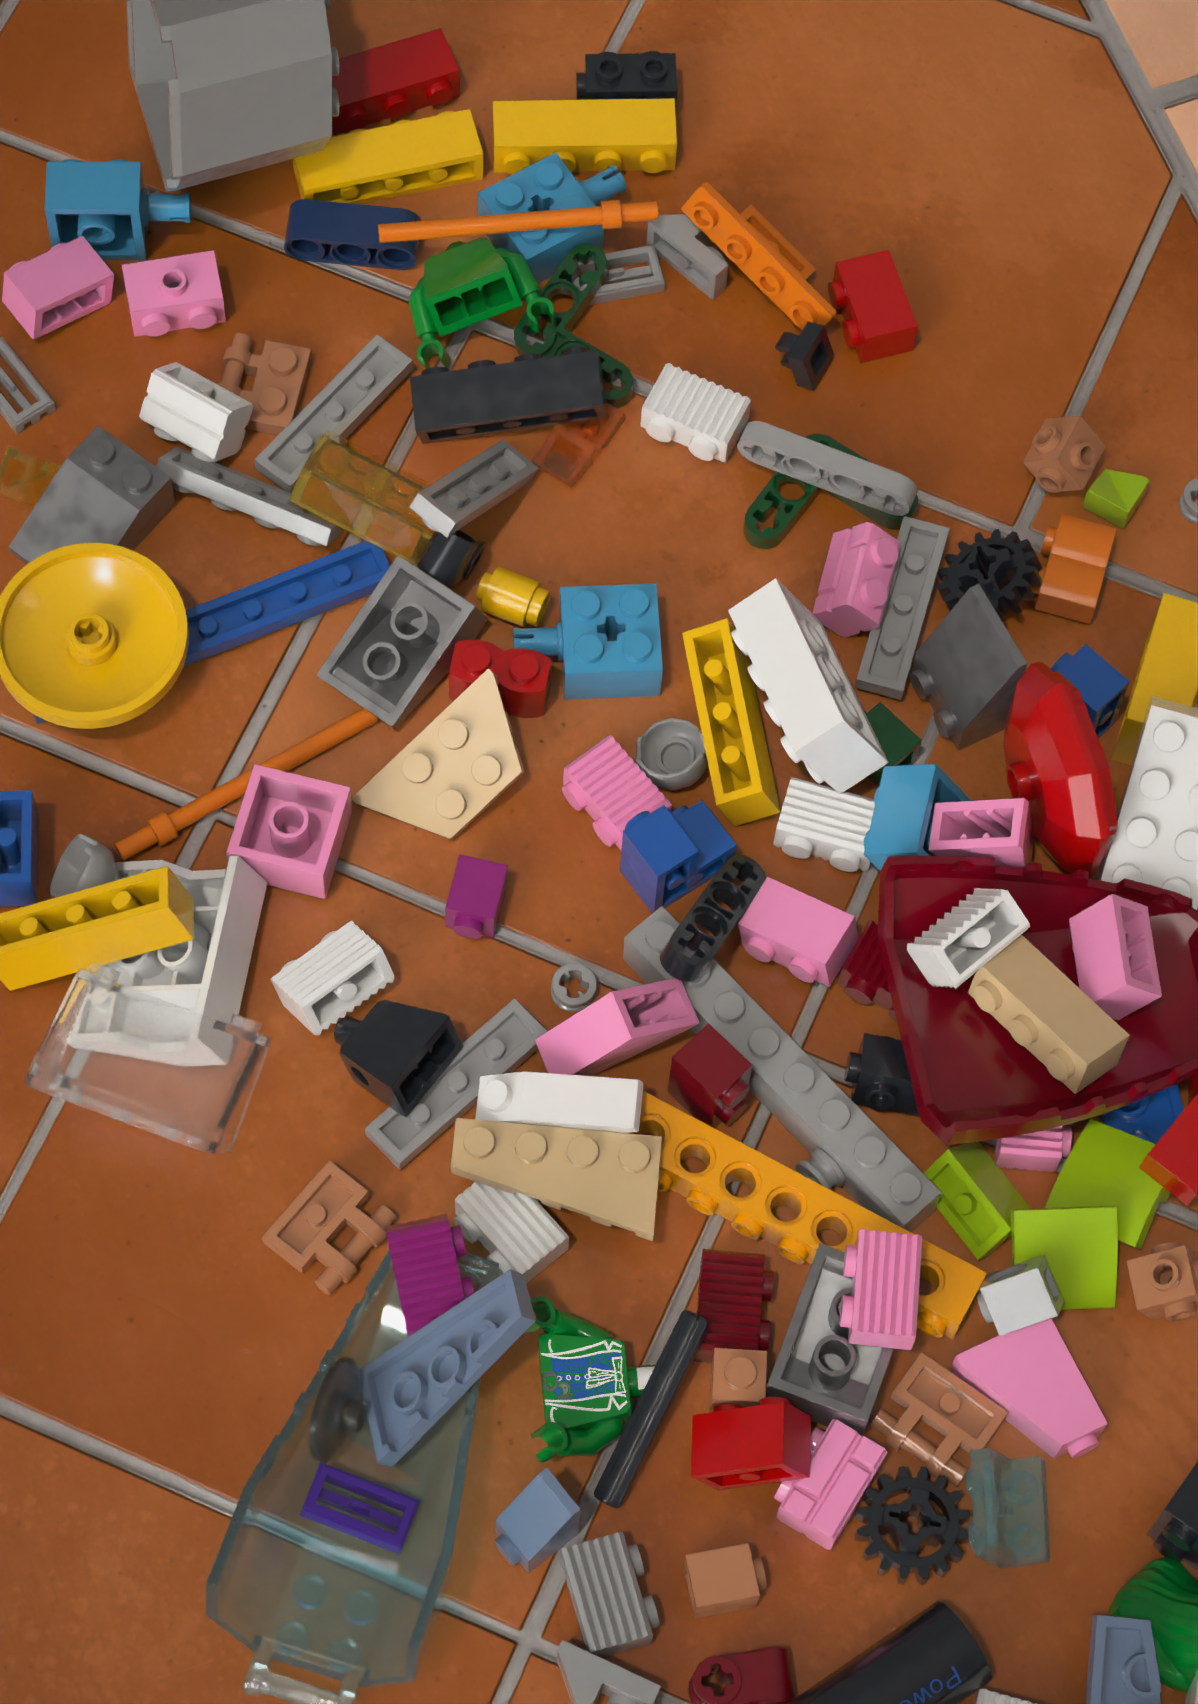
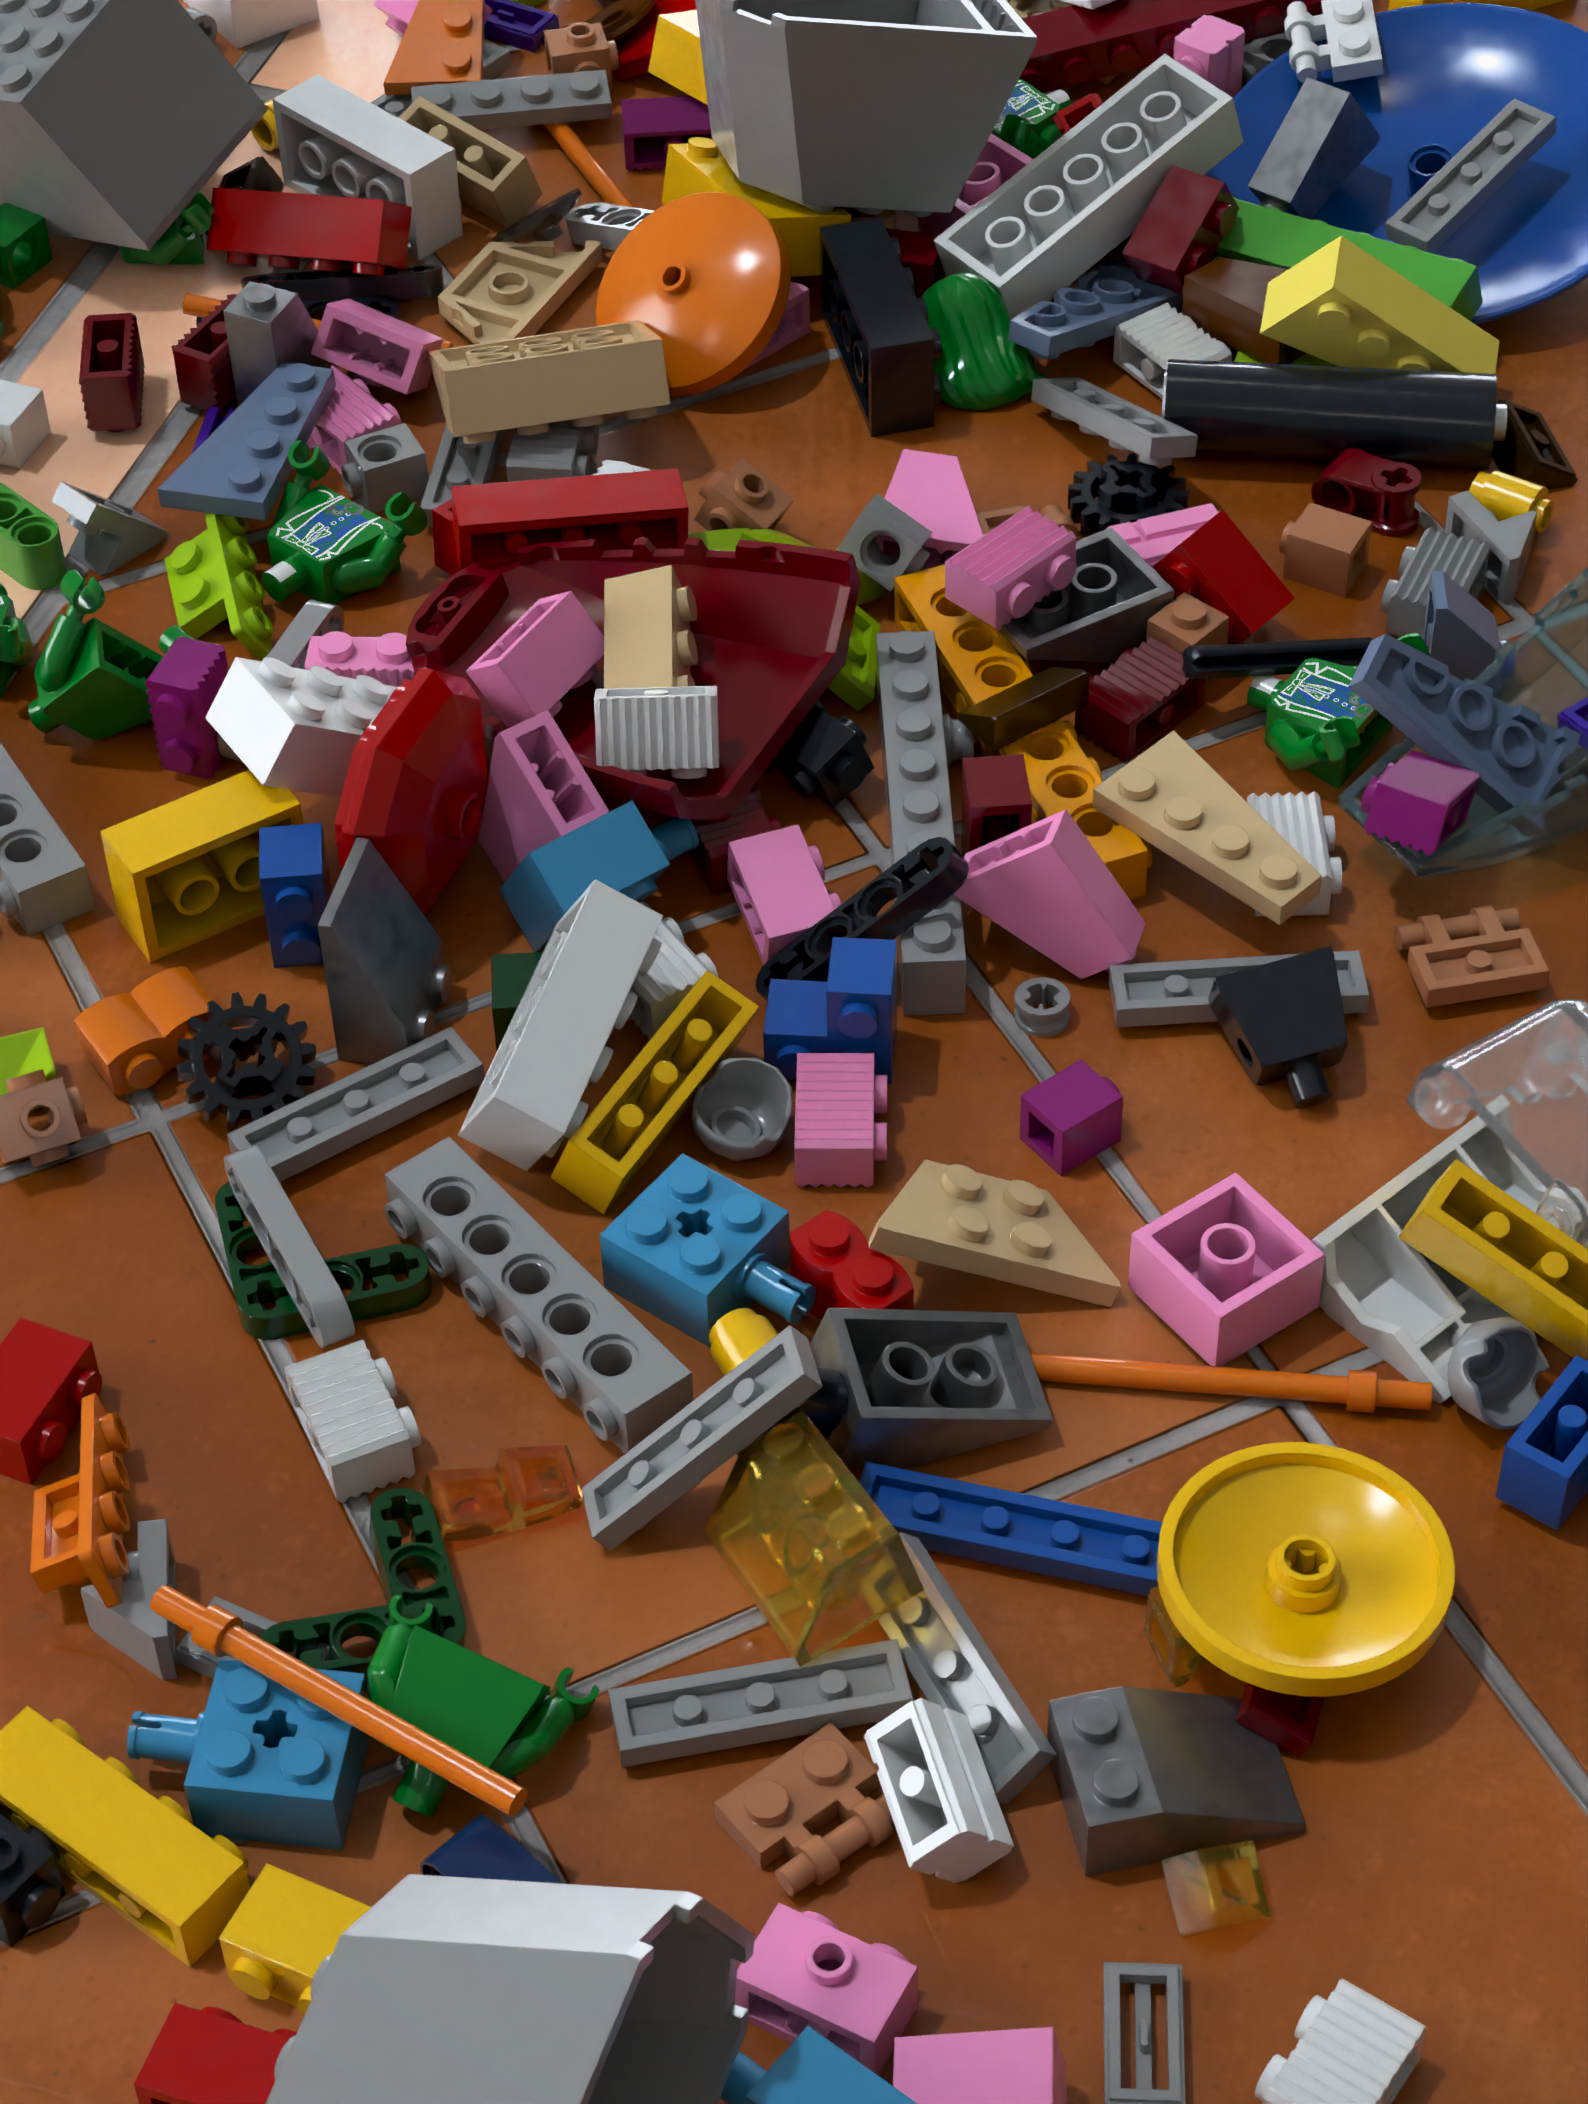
camera: 135 degrees left, 20 degrees down
(332, 977) = (1294, 1125): white brick -> none
(508, 395) = (548, 1546): black brick -> none
(561, 1101) = (1168, 878): white slope -> none
(647, 563) = (537, 1295): none -> light grey brick
(780, 1194) = (1027, 706): none -> dark brown slope
(806, 354) = (159, 1398): black tile -> none
(856, 579) = (366, 1140): bright pink brick -> none
(990, 1593) = (1114, 418): none -> light grey plate
(1008, 1509) = (1036, 461): clear light blue bracket -> none

